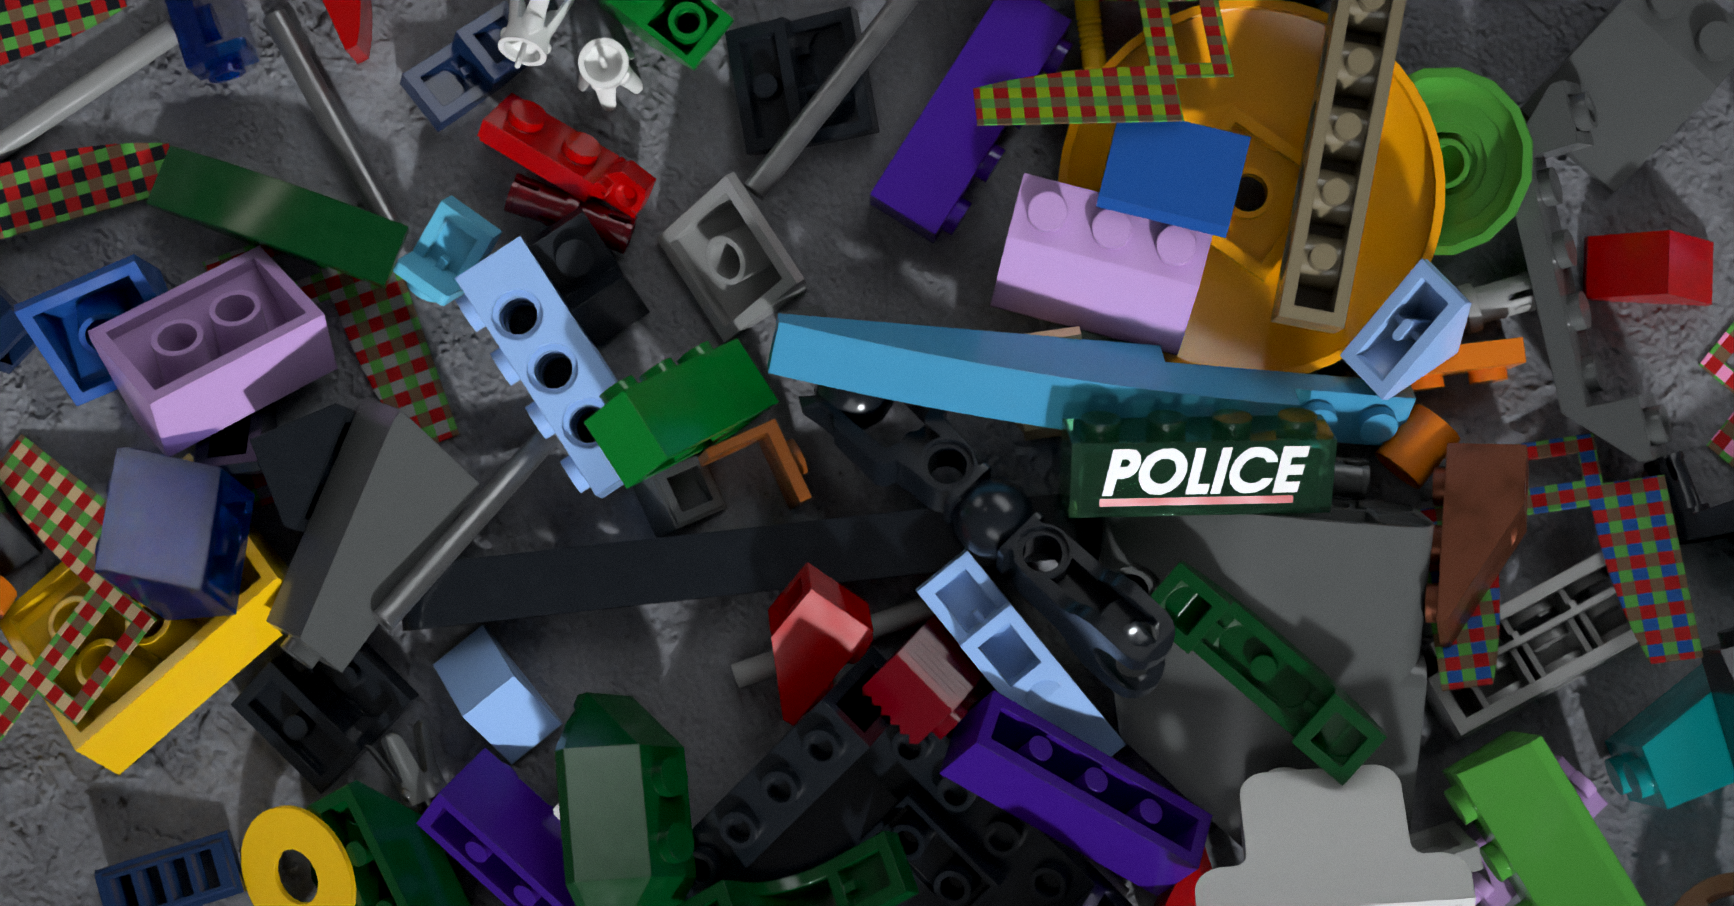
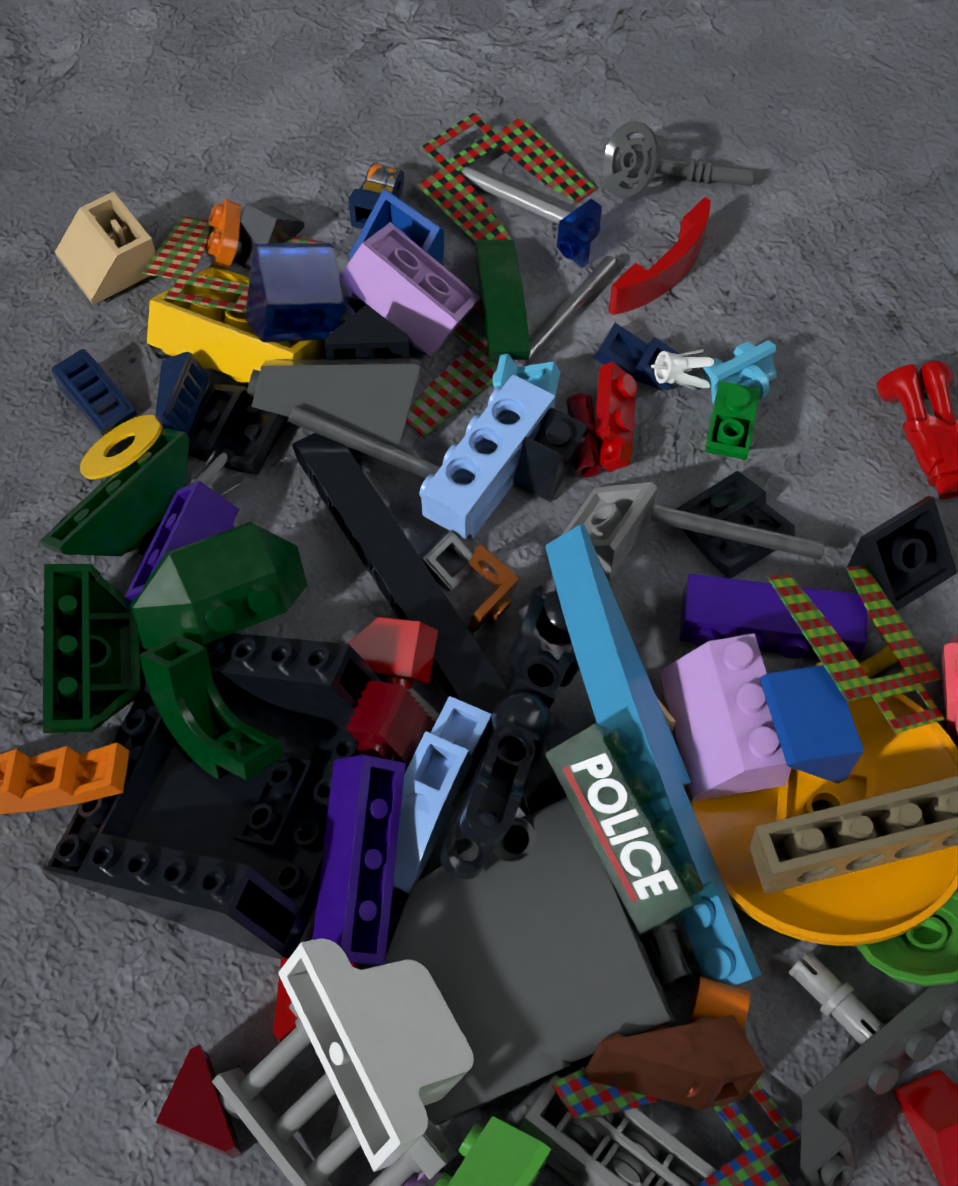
camera: 65 degrees right, 25 degrees down
(242, 759) = (181, 390): none -> dark blue slope
(496, 695) = (277, 504): light blue slope -> none
(605, 67) = (678, 409): white piece -> none
(678, 409) = (495, 512): green brick -> none
(1269, 672) = (507, 938): dark green slope -> none
(1410, 332) = (796, 943): light blue slope -> none
(1480, 360) = (805, 1021): orange plate -> none

